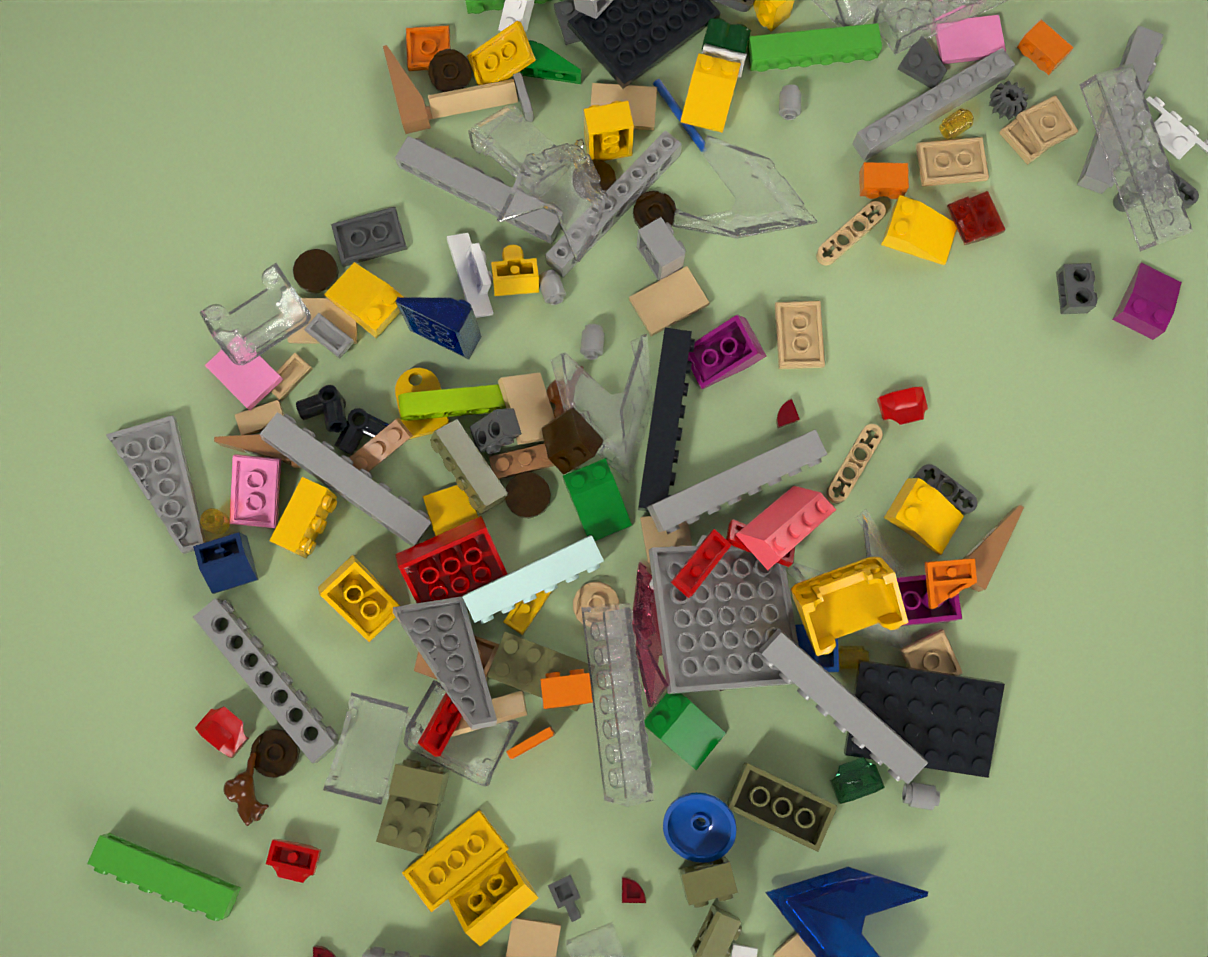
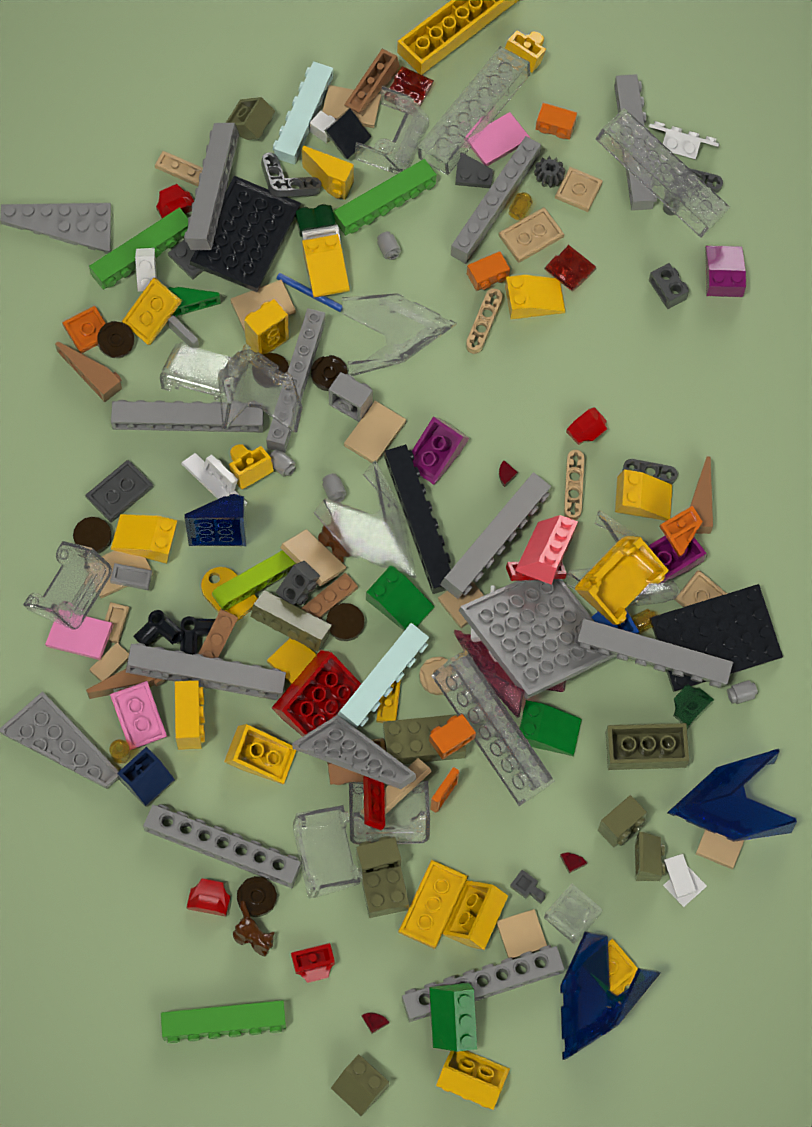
camera: 30 degrees left, 10 degrees down
(473, 98) = (145, 351): tan tile -> none
(570, 441) = (358, 564): dark brown slope -> none
(697, 839) = (607, 797): blue dish -> none
(701, 563) = (501, 600): red plate -> none
(799, 335) = (485, 412): tan tile -> none
(1047, 124) = (586, 176): tan tile -> none

